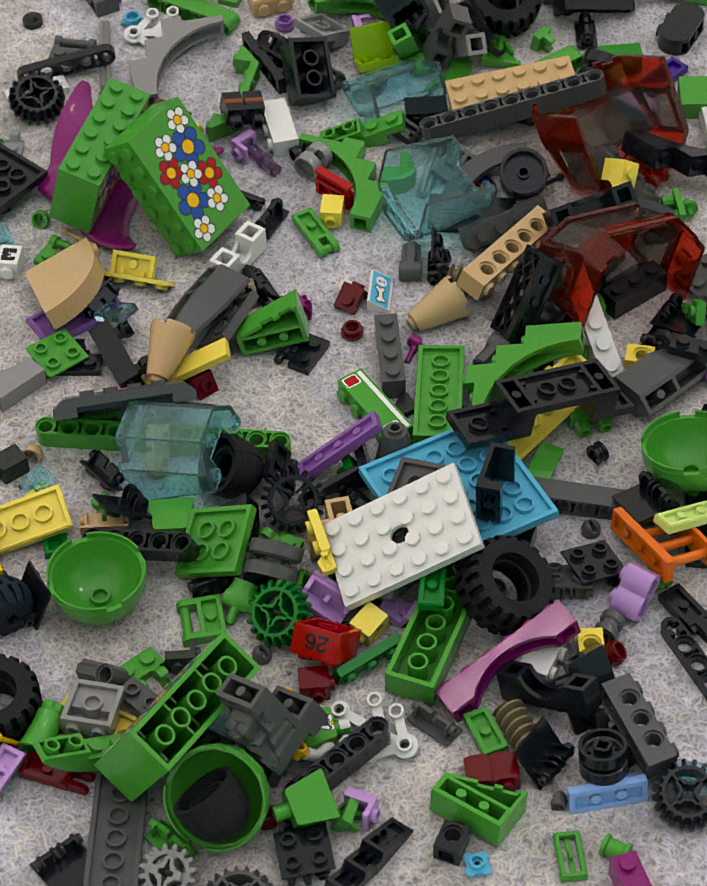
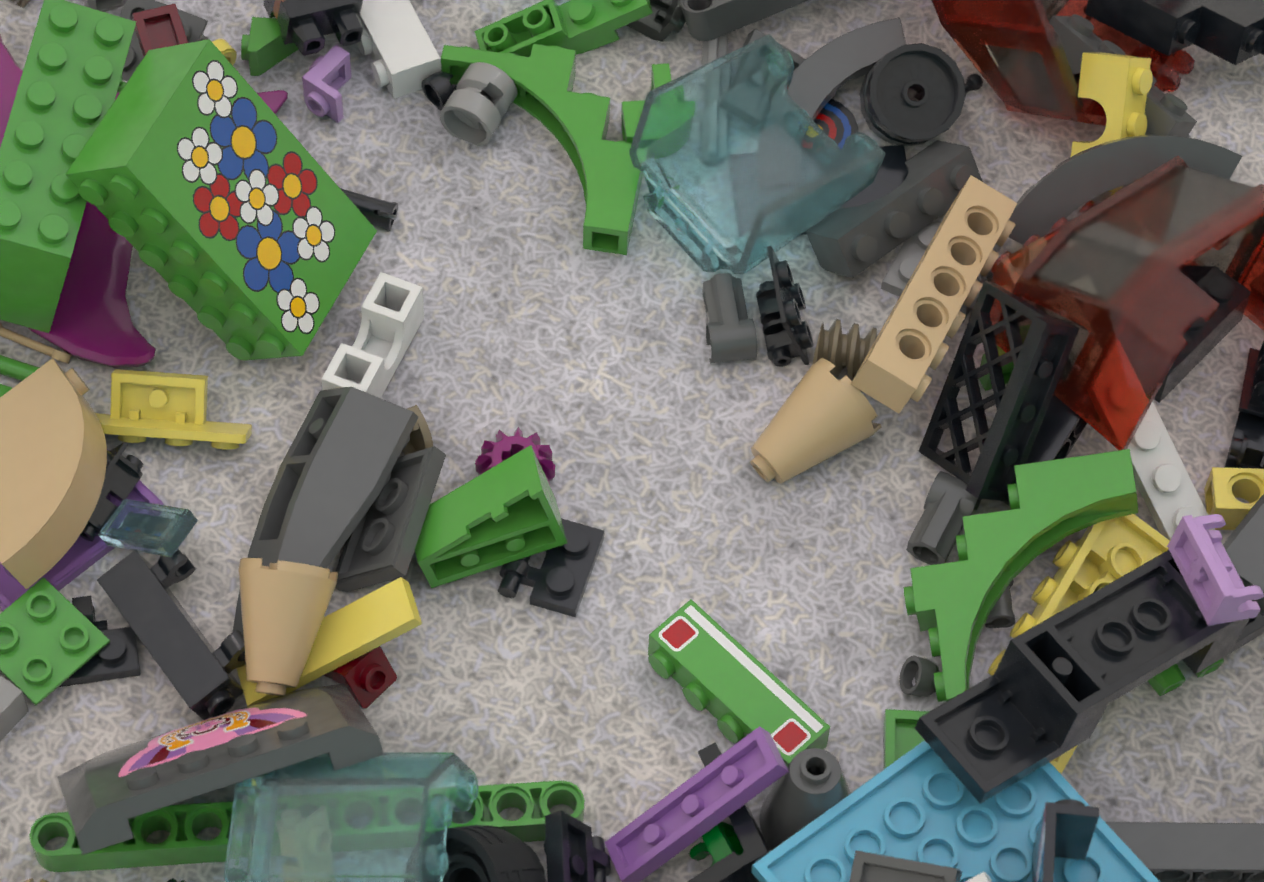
camera: 15 degrees left, 10 degrees up
(263, 285) = (439, 414): black hinge -> none
(264, 160) = (376, 111): clear purple pin -> none
(272, 217) = (420, 247): black hinge -> none
(315, 232) = (517, 271): bright green plate -> none
(332, 184) = (537, 165): red plate -> none
(332, 210) = (542, 218): light yellow brick -> none
(350, 297) = (624, 420): dark red bracket -> none
(352, 330) = (647, 487): dark red plate -> none
(379, 292) = (680, 399): slope -> none
(390, 355) = (748, 576): dark grey arch -> none
(405, 404) = (795, 666): pearl dark grey tile -> none
(414, 342) = (778, 510): magenta hand -> none
(437, 388) = (860, 636): bright green plate -> none
(545, 460) = (1111, 772): bright green slope -> none
(597, 452) = (1209, 732): black bush -> none
(602, 368) = (1210, 571): none -> lavender hinge
(610, 197) = (1050, 193): black arch -> none
(683, 208) = (1226, 126): bright green hips -> none

